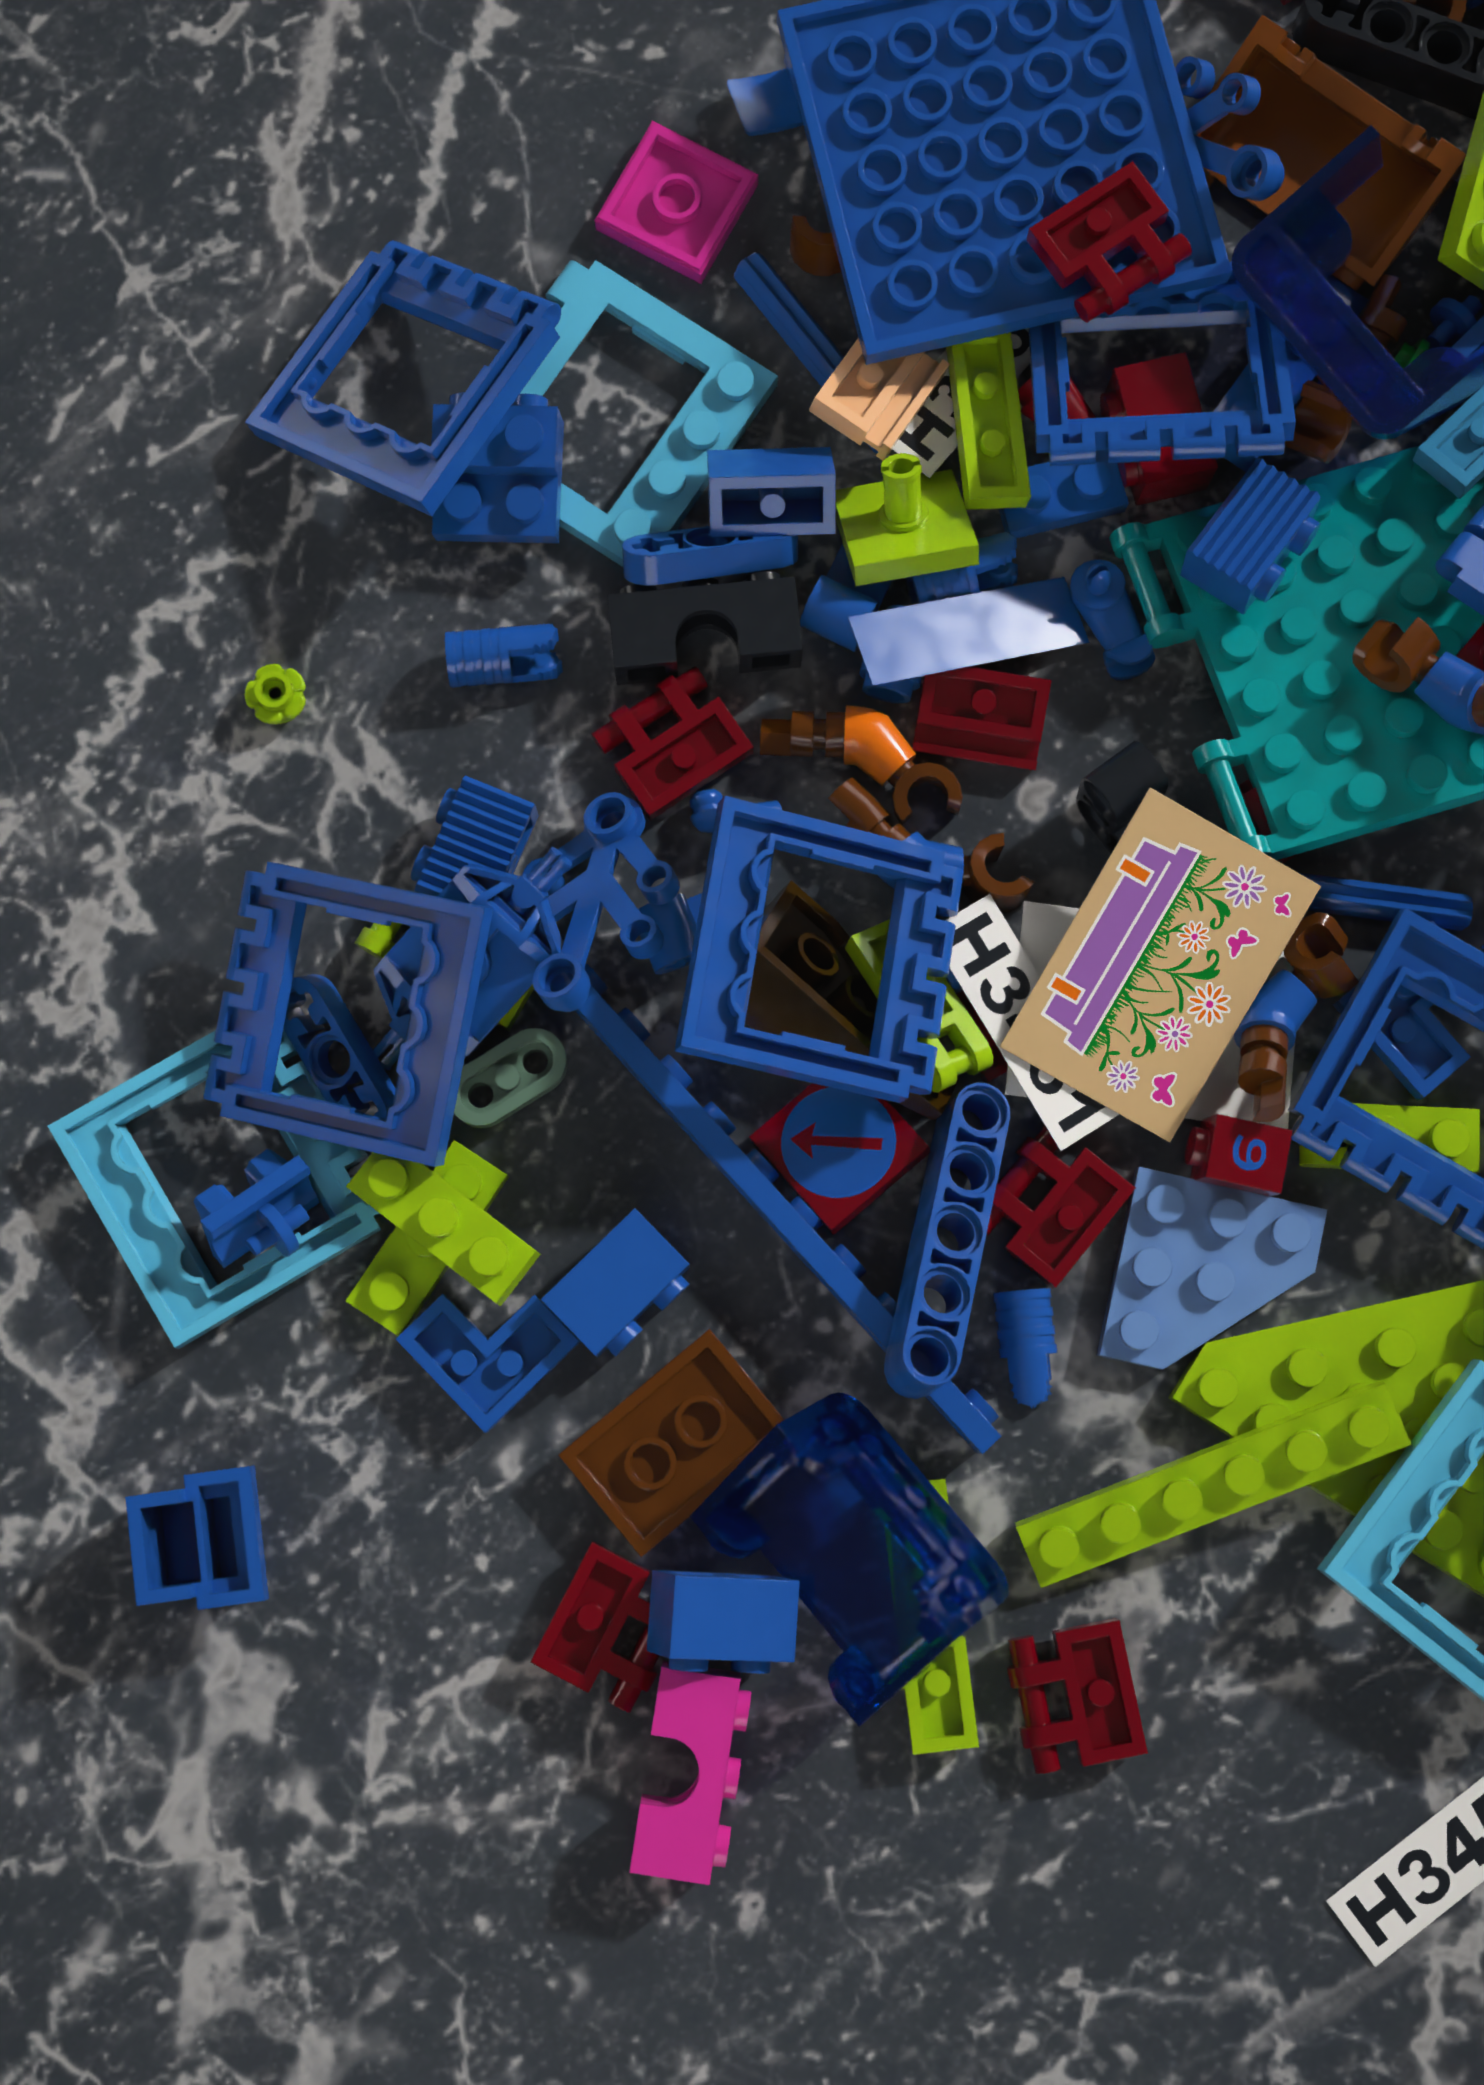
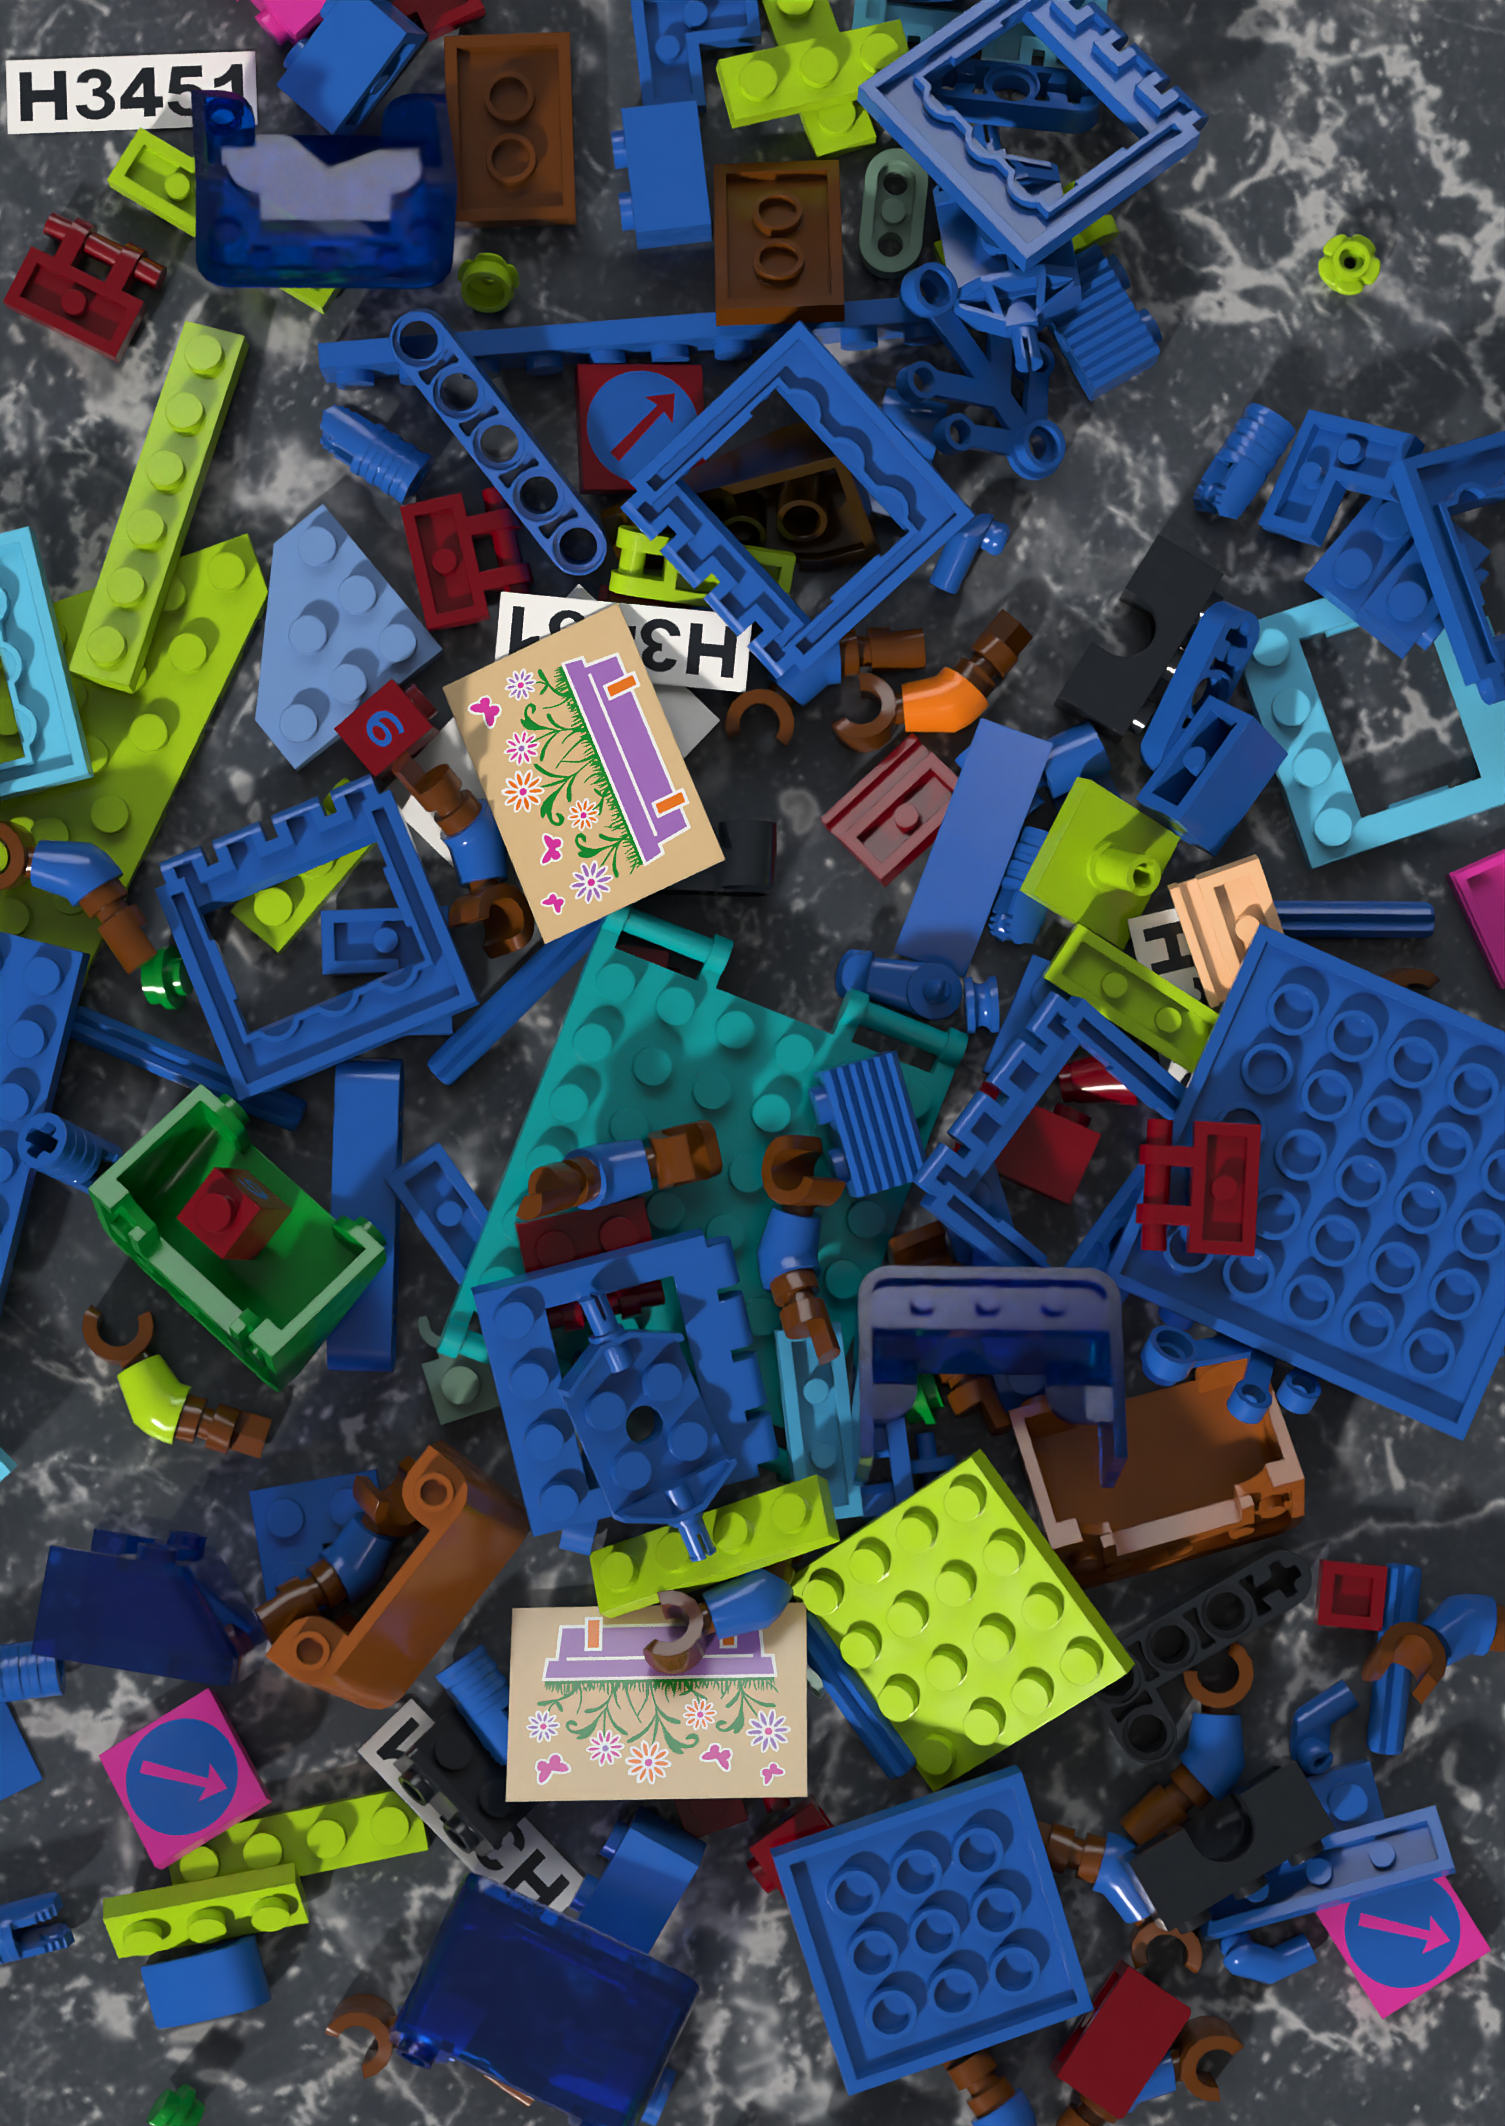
camera: 130 degrees right, 5 degrees up
(455, 591) = (1325, 462): none -> blue plate
(608, 1142) = (778, 243): none -> reddish brown plate
(683, 756) = (1047, 546): dark red plate -> none
(816, 1361) = (483, 293): none -> lime plate
(884, 1797) = (120, 90): none -> white sticker
(1080, 540) = (981, 1004): none -> blue bush
(1393, 526) = (791, 1237): none -> reddish brown piece

